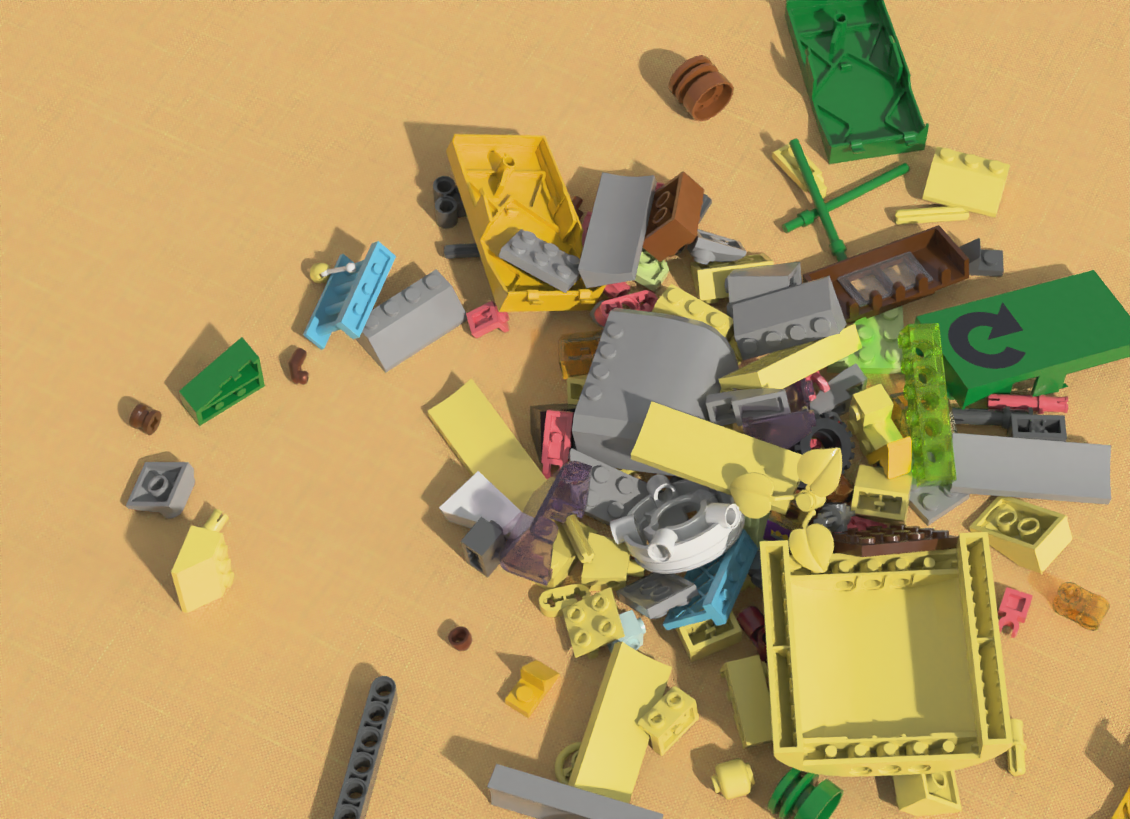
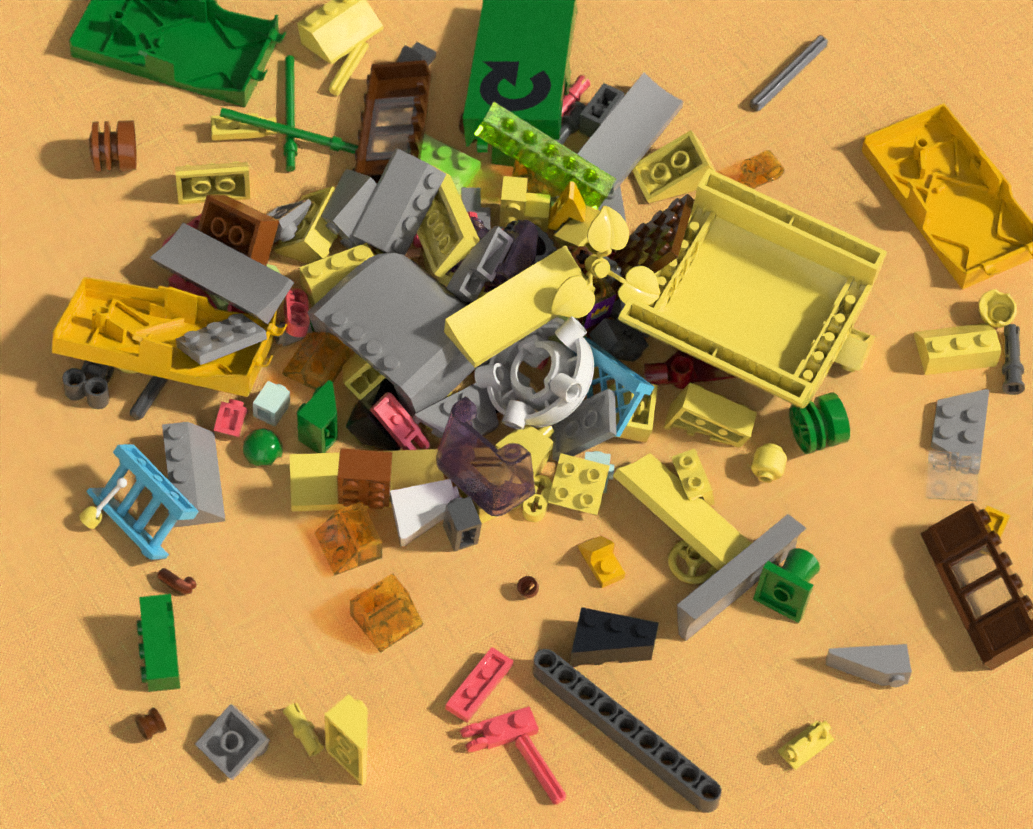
camera: 65 degrees left, 0 degrees up
(275, 745) = (540, 769): none -> coral axle
(299, 693) = (500, 729): none -> coral hinge
(333, 650) = (479, 684): none -> coral plate
(358, 536) = (385, 612): none -> clear yellow slope
(419, 471) = (349, 539): none -> clear yellow slope
(444, 732) = (612, 637): none -> black wedge
(467, 439) = (364, 478): none -> dark orange brick
(475, 359) = (262, 447): none -> green hair
(523, 341) = (271, 403): none -> light aqua brick
(525, 382) = (318, 419): none -> green slope
(721, 177) = (212, 179): none -> light yellow slope

